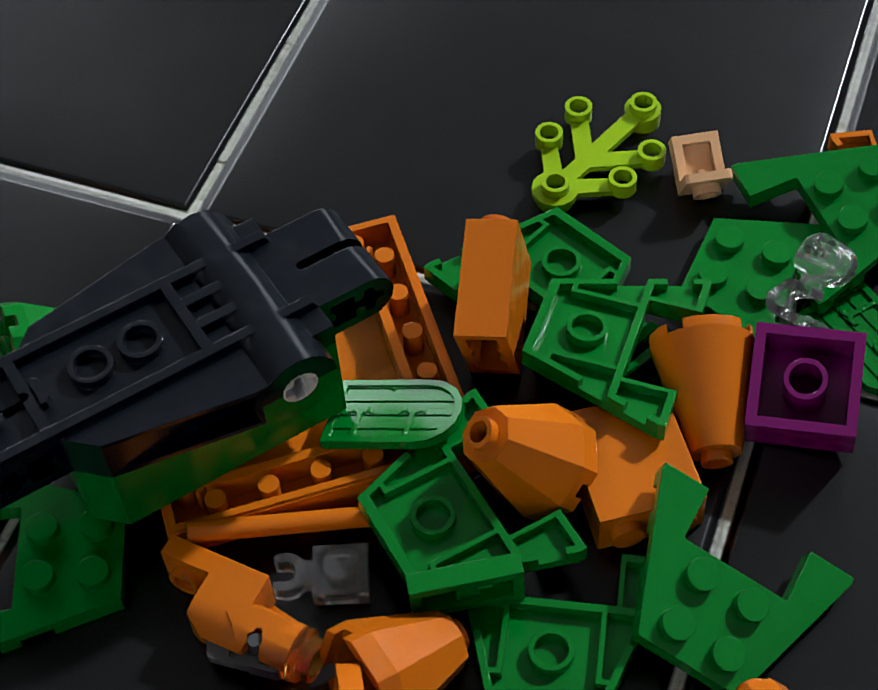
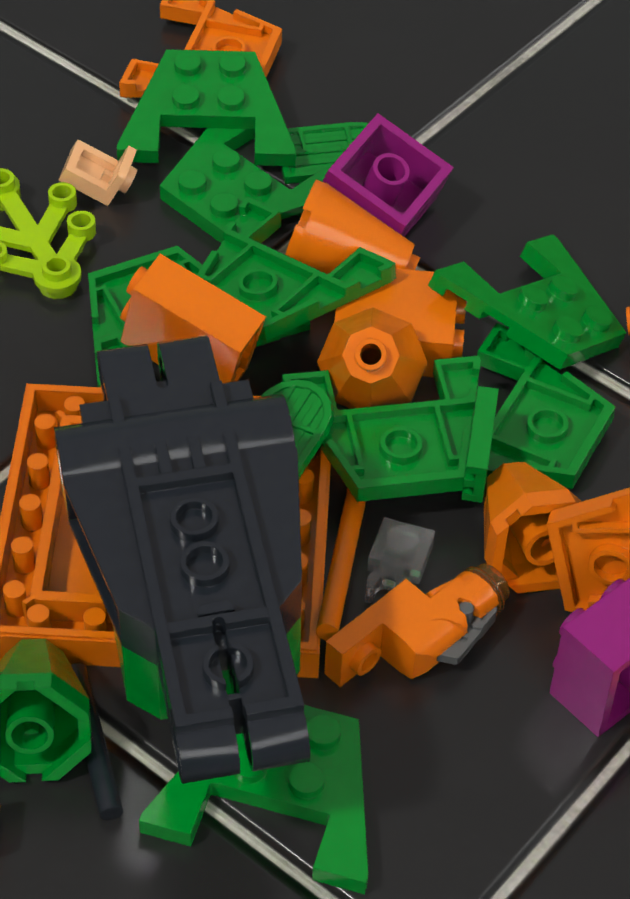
camera: 75 degrees left, 5 degrees down
(822, 264) = (275, 124): clear leg -> none

